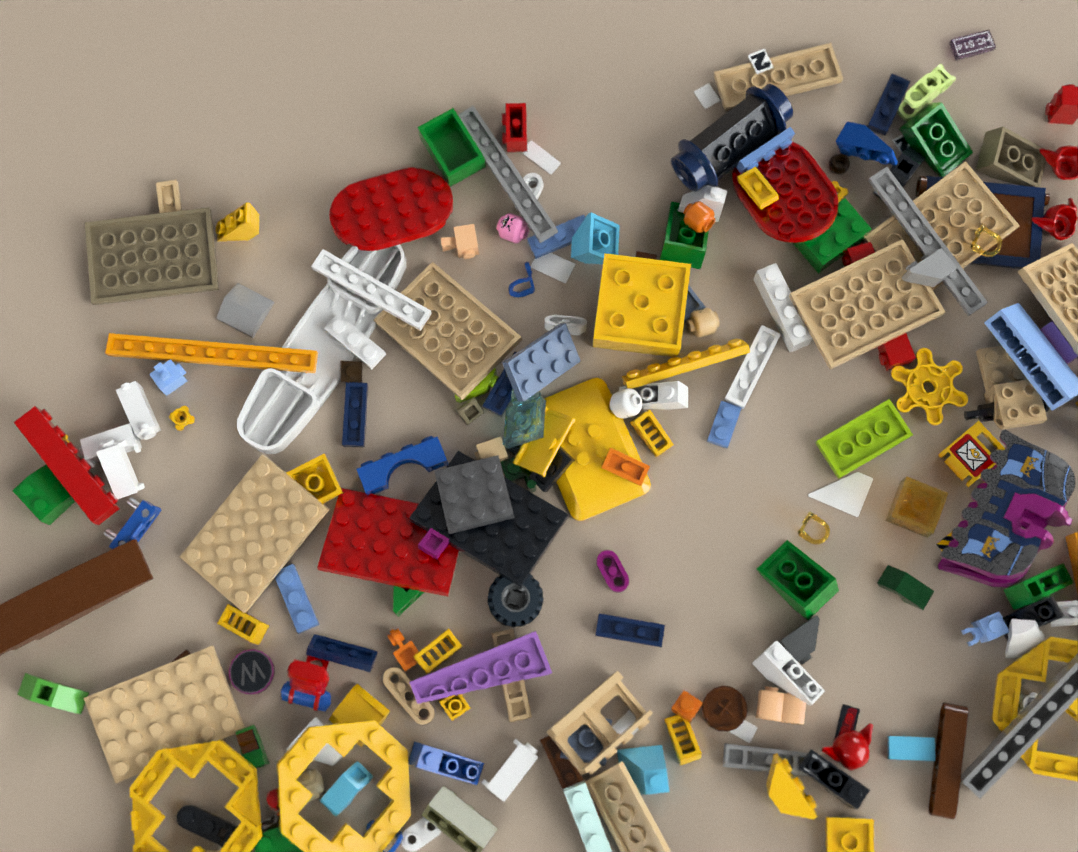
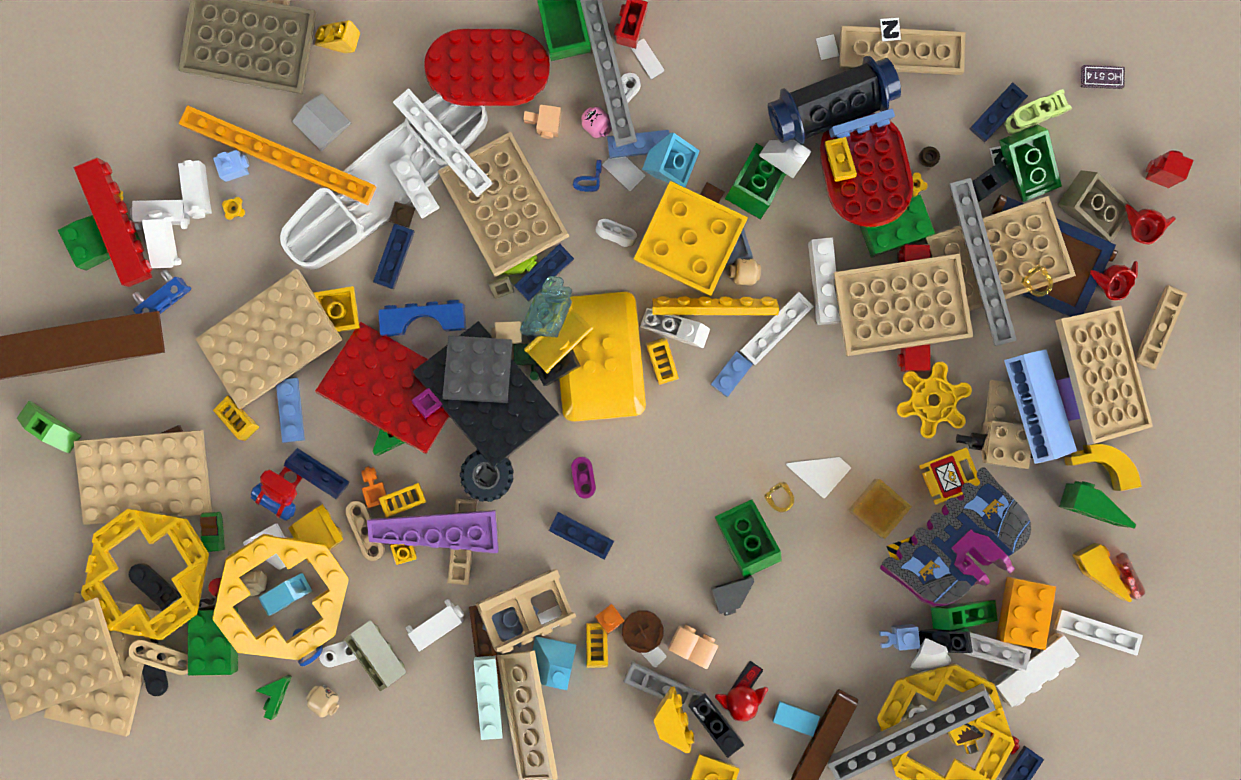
camera: 10 degrees right, 10 degrees up
(251, 671) = (231, 464): black tile -> none
(445, 763) = (378, 600): blue slope -> none
(541, 362) = (579, 264): sand blue plate -> none
(625, 466) = (625, 387): orange plate -> none
(626, 403) = (646, 327): white head -> none
(699, 217) = (775, 169): orange head -> none
(787, 673) = (708, 620): white slope -> none
(861, 142) = (956, 143): blue slope -> none
(864, 438) = (855, 429): lime plate -> none
(906, 586) = (843, 576): dark green slope -> none
(931, 270) = (973, 294): light grey slope -> none

